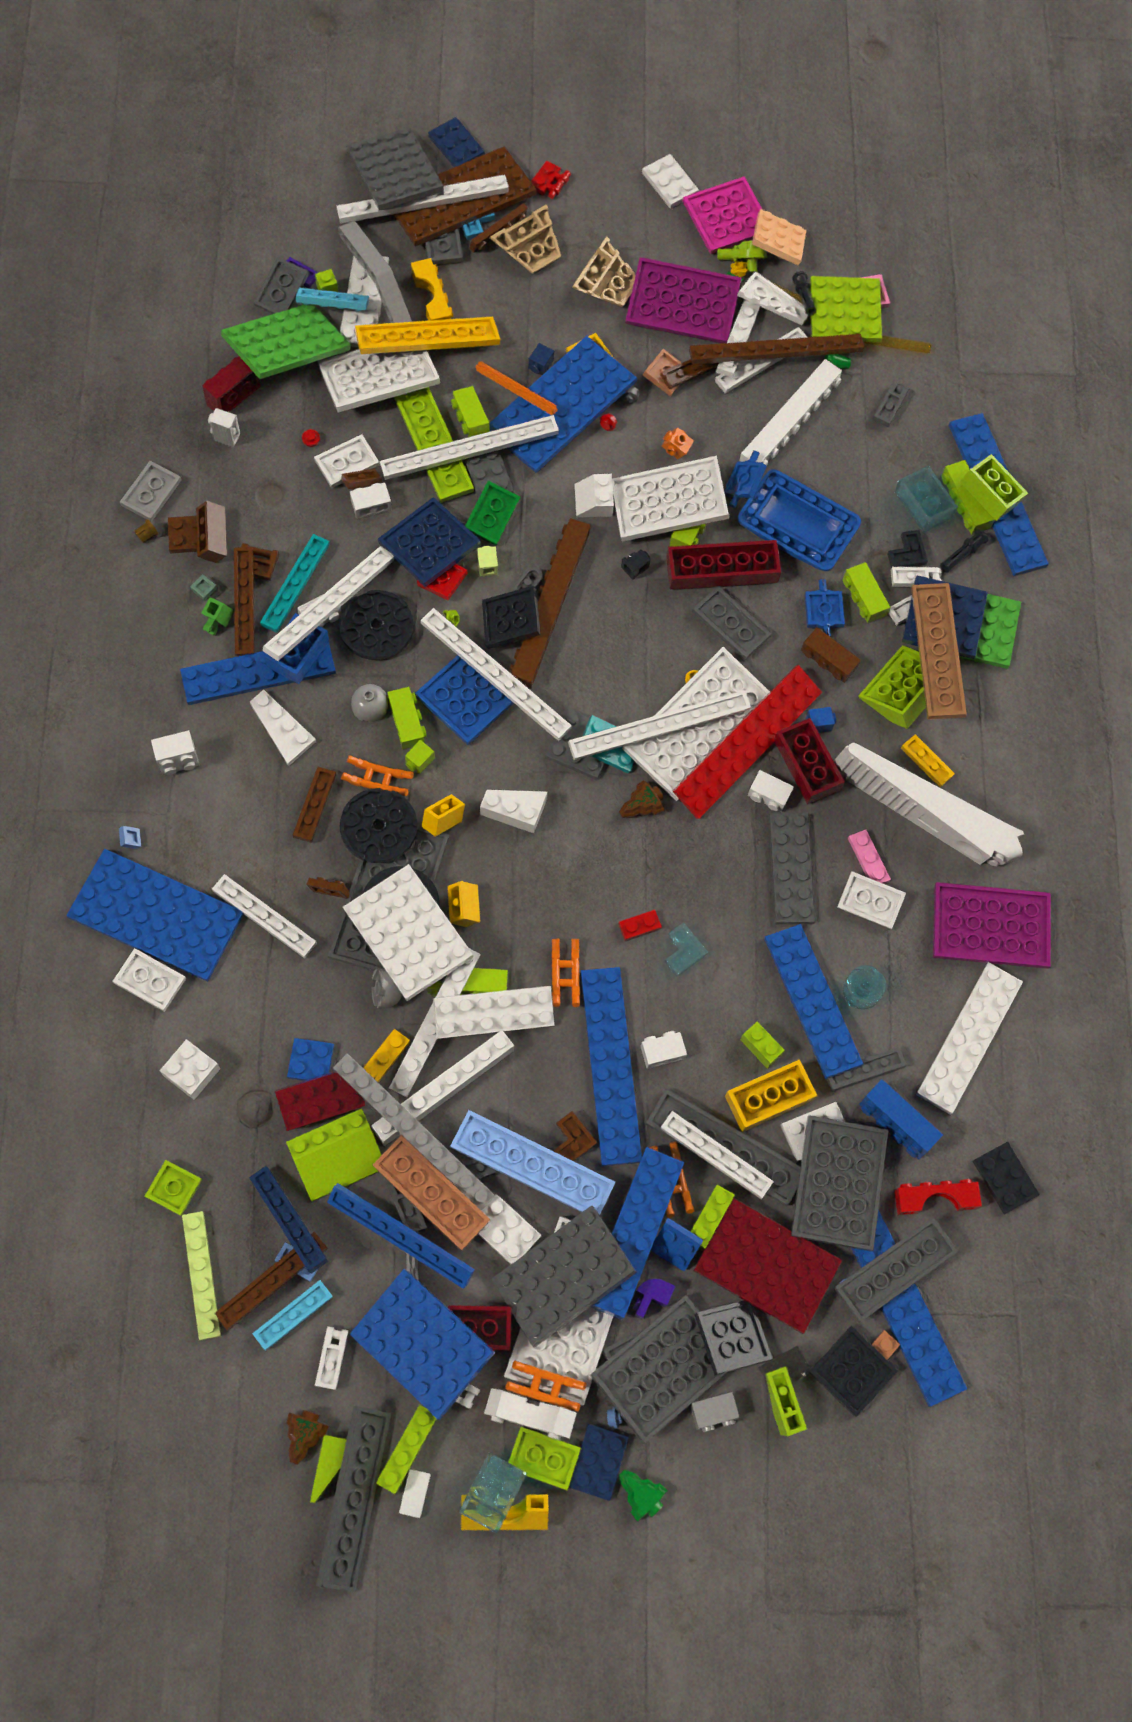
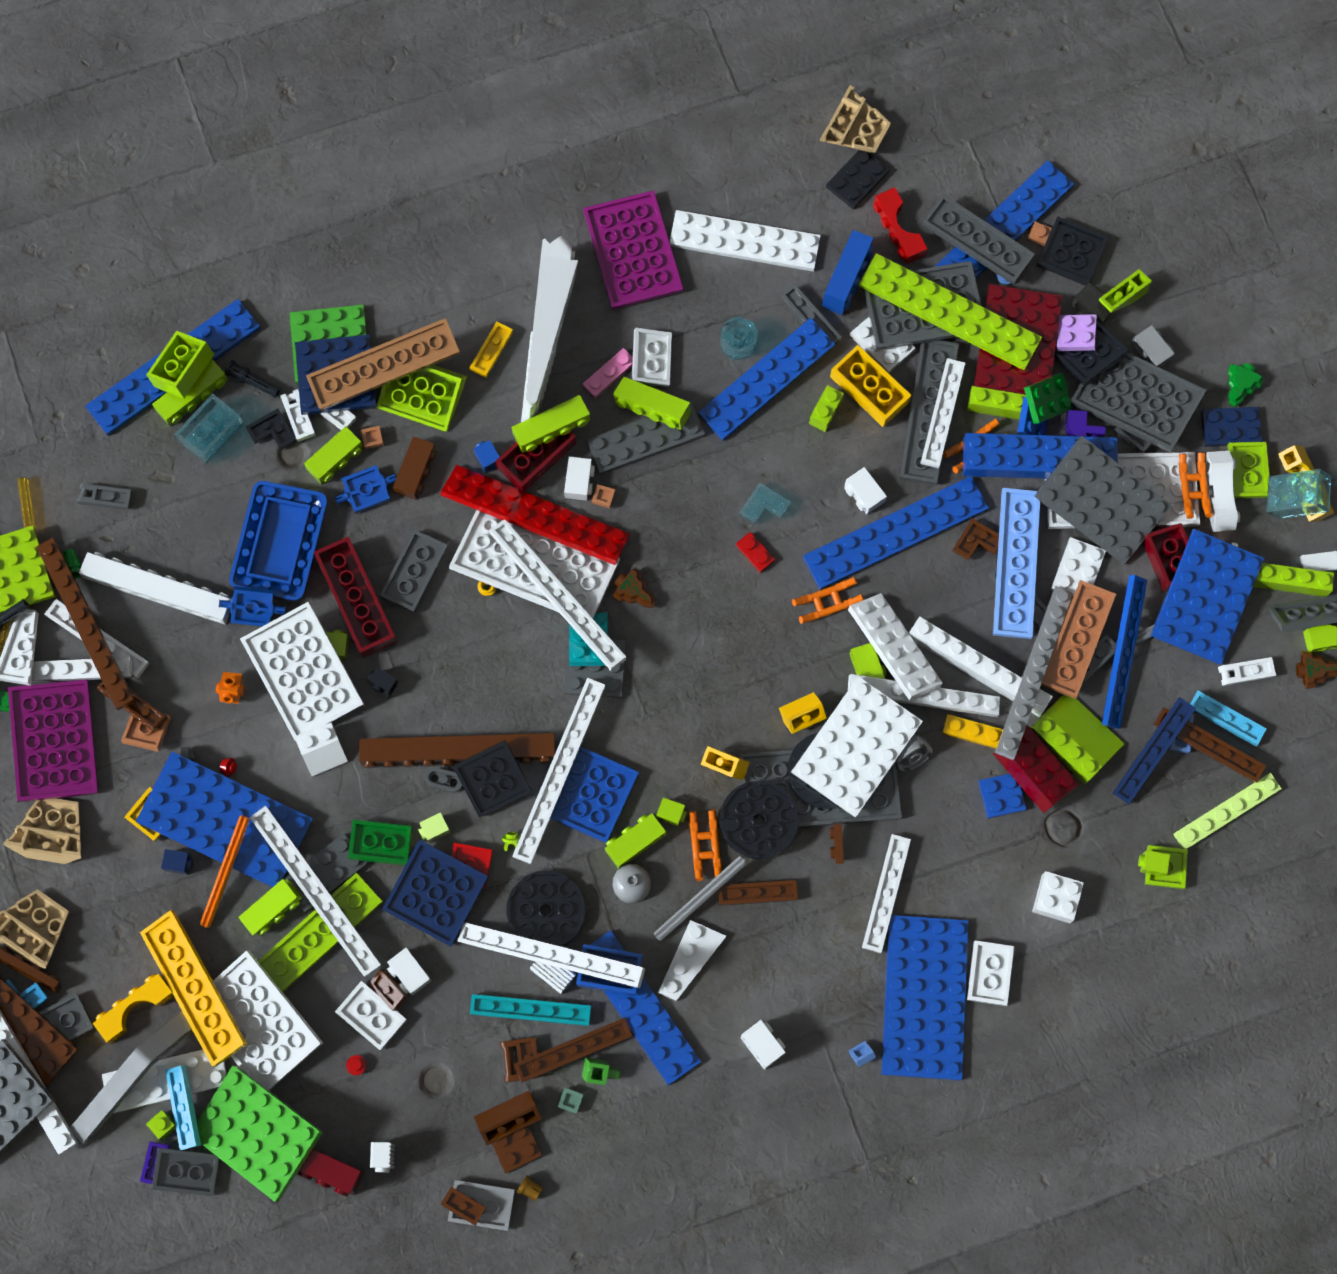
camera: 105 degrees left, 5 degrees up
(154, 472) = (463, 1206): none -> reddish brown plate
(179, 1171) = (1154, 863): none -> lime brick
(330, 752) = (700, 898): none -> light grey axle
(514, 808) = (687, 700): white wedge -> none
(614, 1417) = (1193, 425): medium blue plate -> none
(694, 1266) = (1048, 398): none -> green plate
(745, 807) = (603, 496): none -> nougat plate
(757, 1332) = (1077, 332): none -> lavender plate
(820, 882) = (652, 403): none -> lime brick
(821, 1204) = (950, 311): none -> lime plate
(829, 774) = (551, 423): none -> lime brick
(873, 630) = (372, 437): none -> nougat plate
(1065, 1194) = (856, 124): none -> tan wedge

